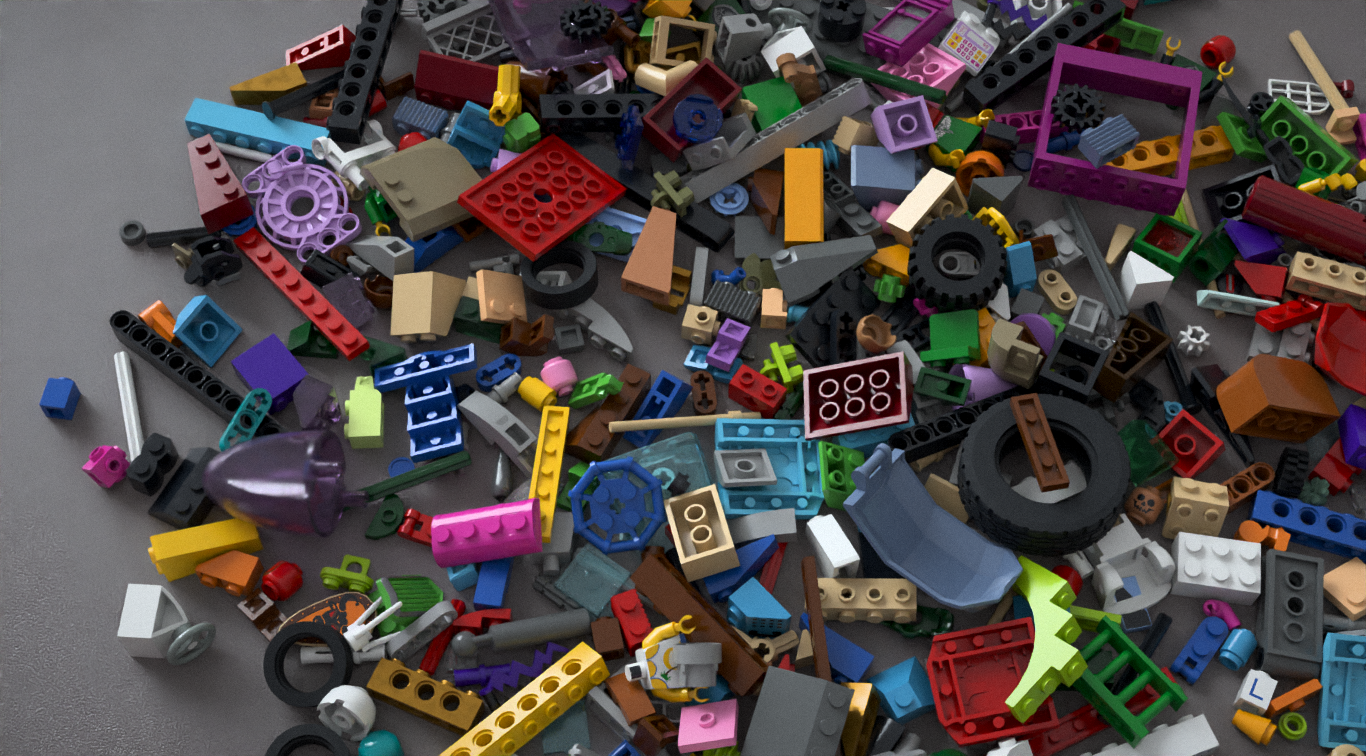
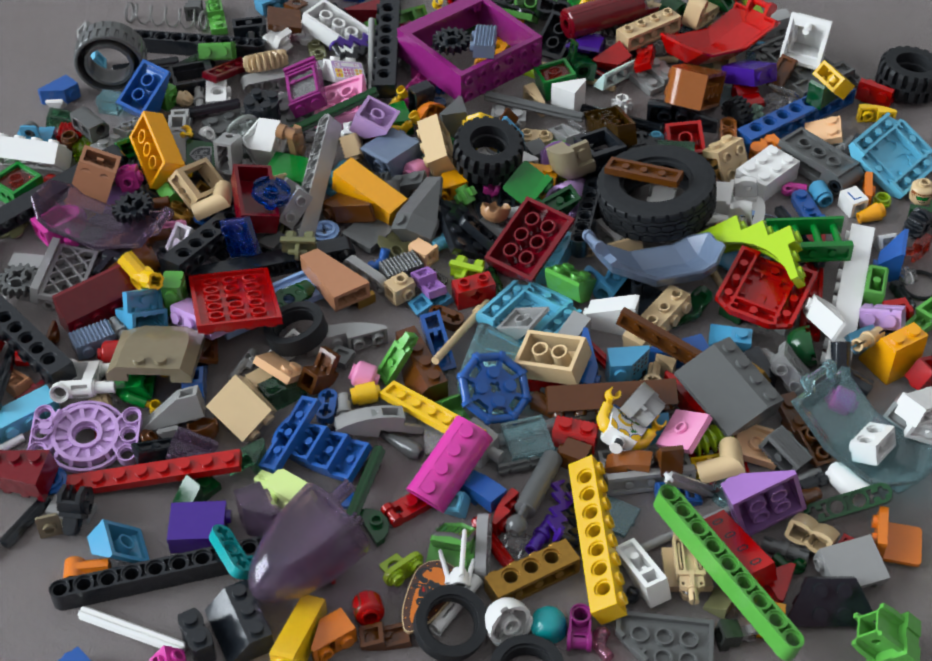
camera: 50 degrees left, 15 degrees down
(679, 484) = (510, 347): black plate -> none

